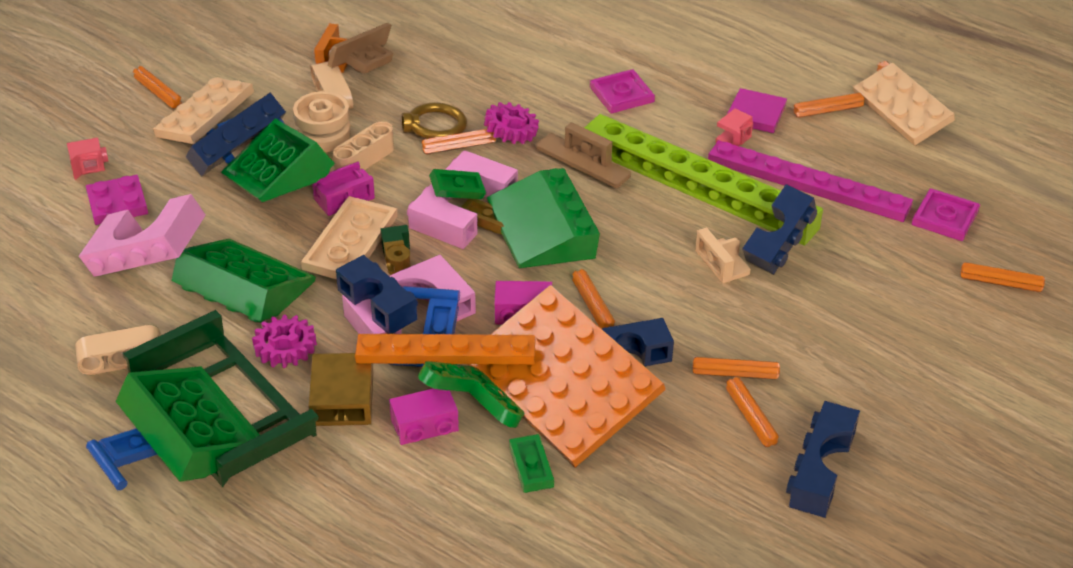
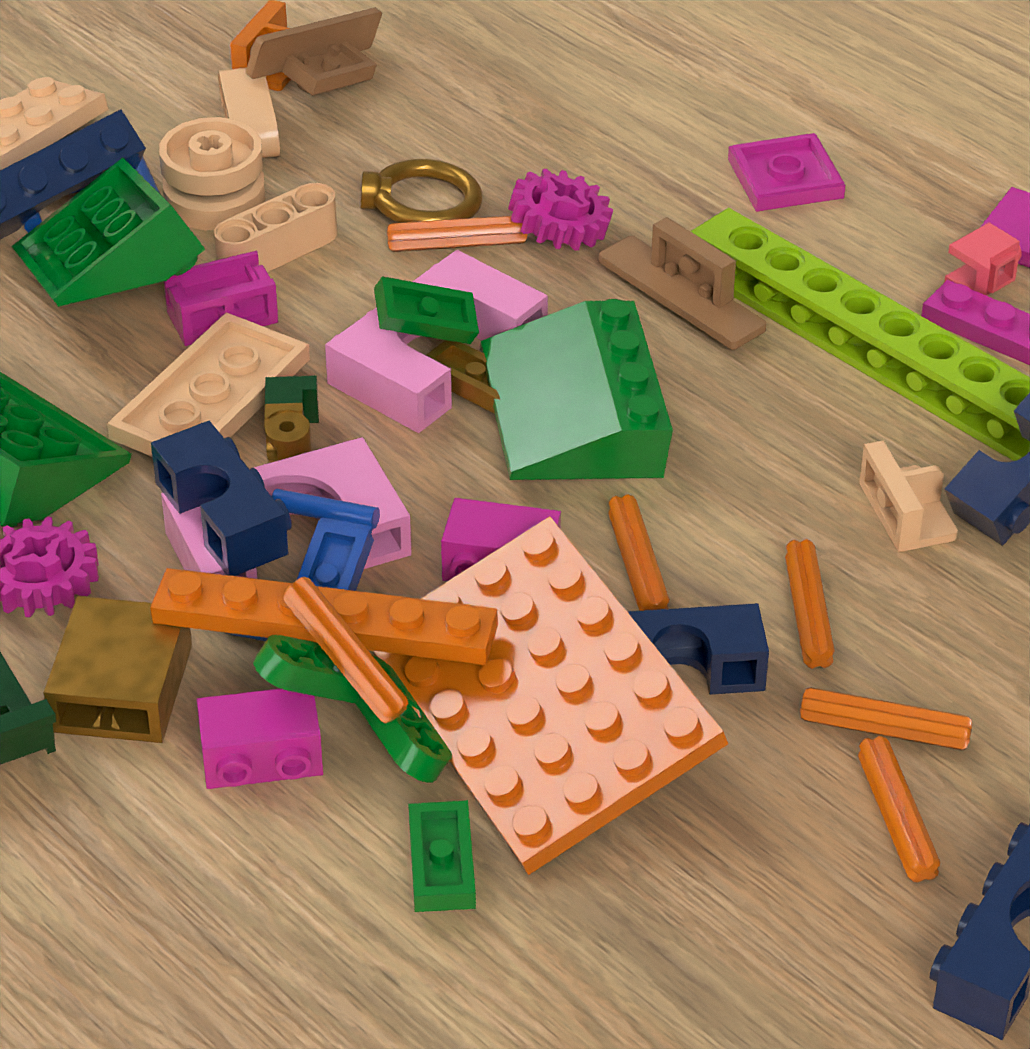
camera: 10 degrees right, 0 degrees up
(463, 364) = (345, 650): none -> orange axle
(685, 314) = (809, 604): none -> orange axle

